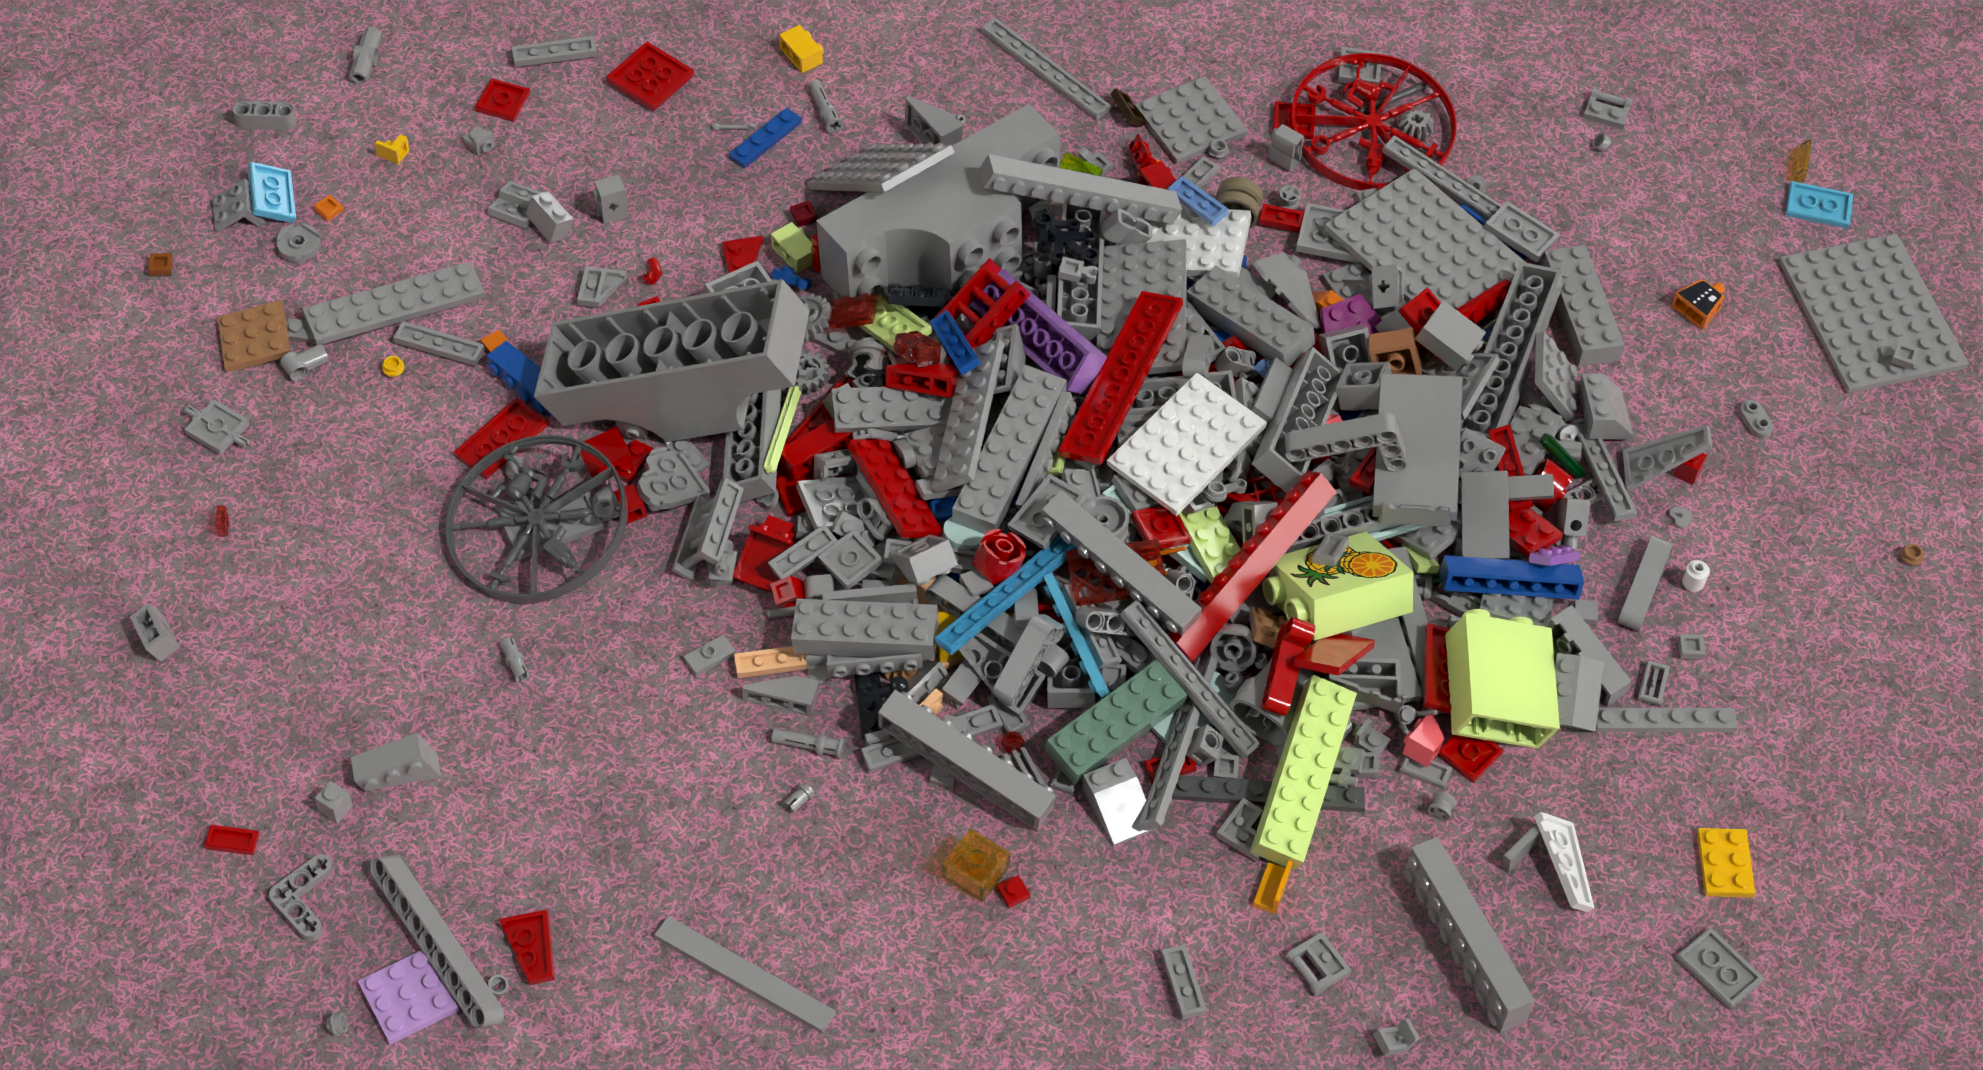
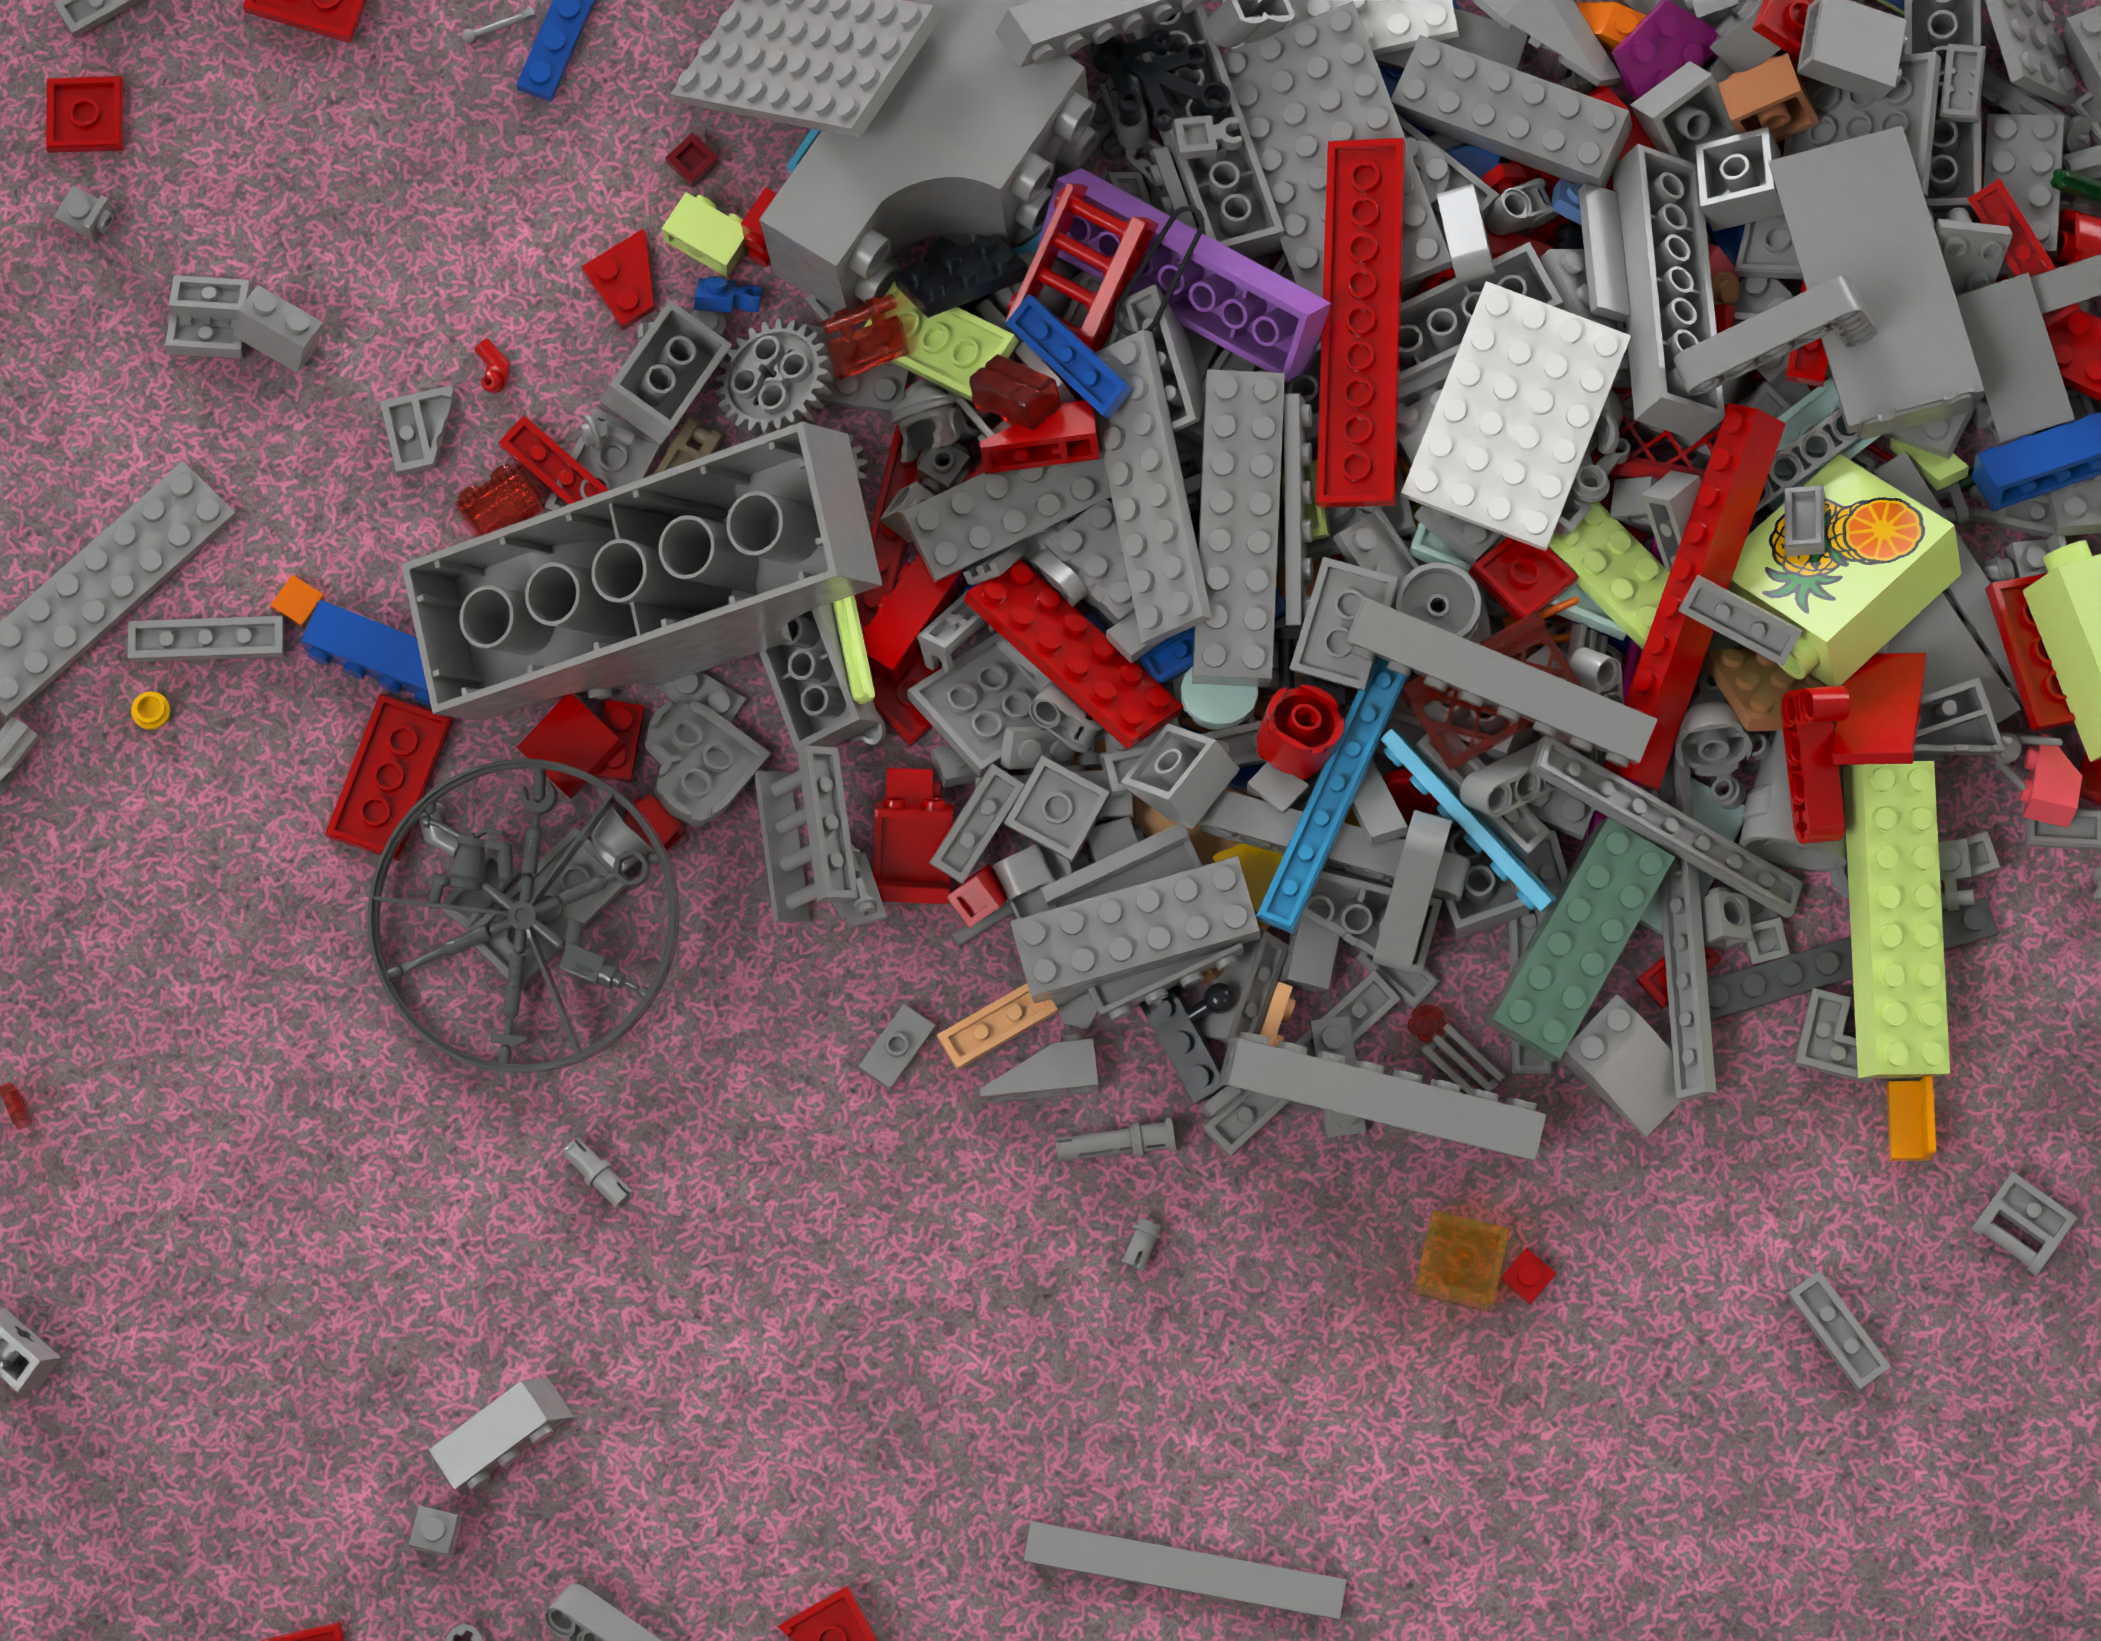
camera: 20 degrees left, 20 degrees up
(610, 199) = (366, 259): light grey brick -> none
(1017, 309) = (1147, 258): none -> black piece
(1270, 576) = (1740, 620): none -> light grey plate
(1369, 738) = (1964, 808): light grey bracket -> none
(1507, 376) = (1962, 83): none -> light grey plate

